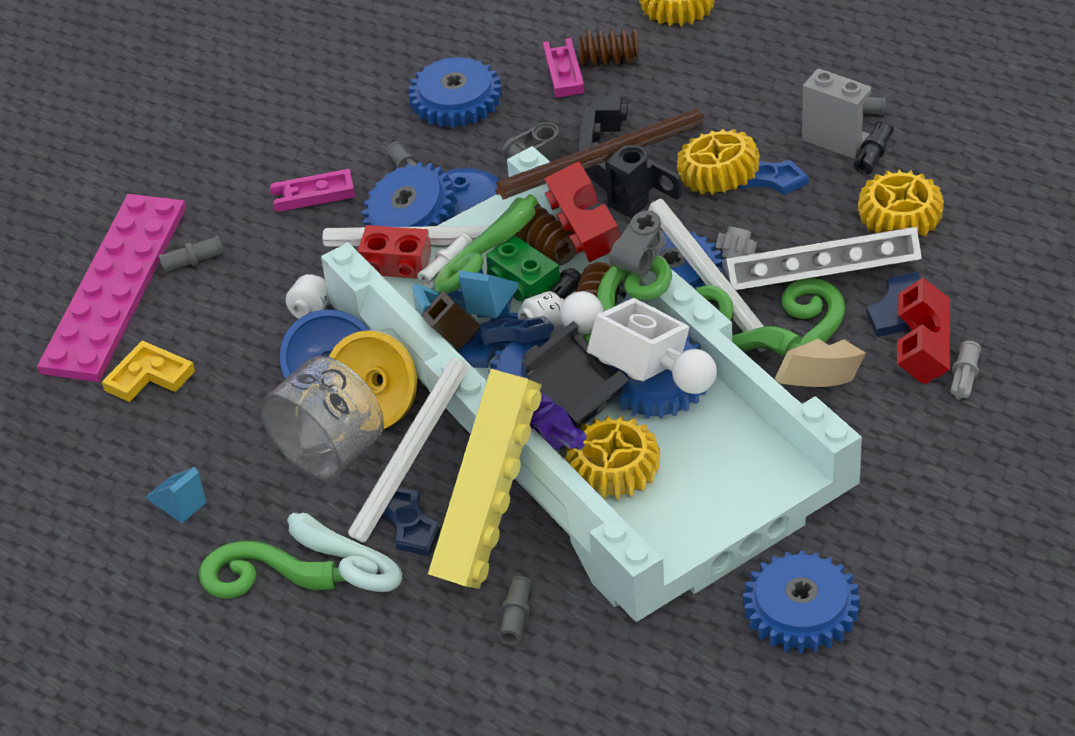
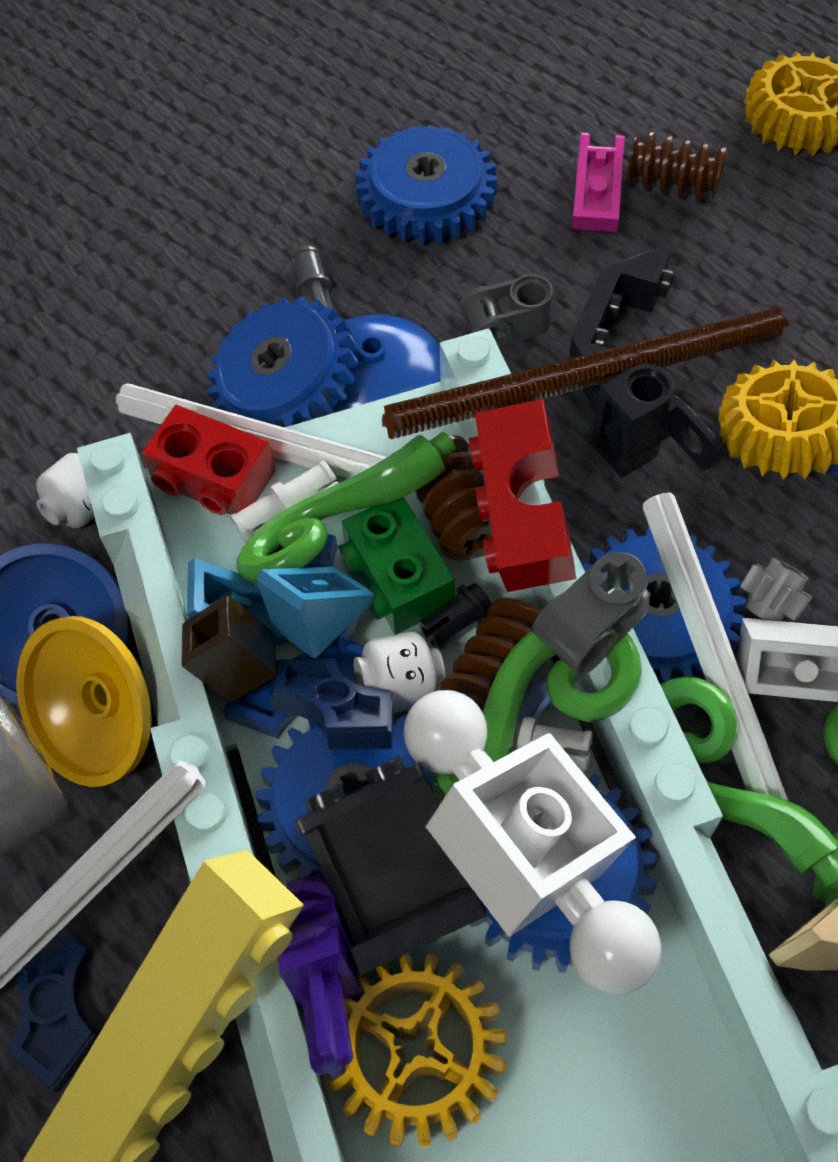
camera: 15 degrees right, 15 degrees up
(312, 190) = (164, 296): dark pink hinge -> none

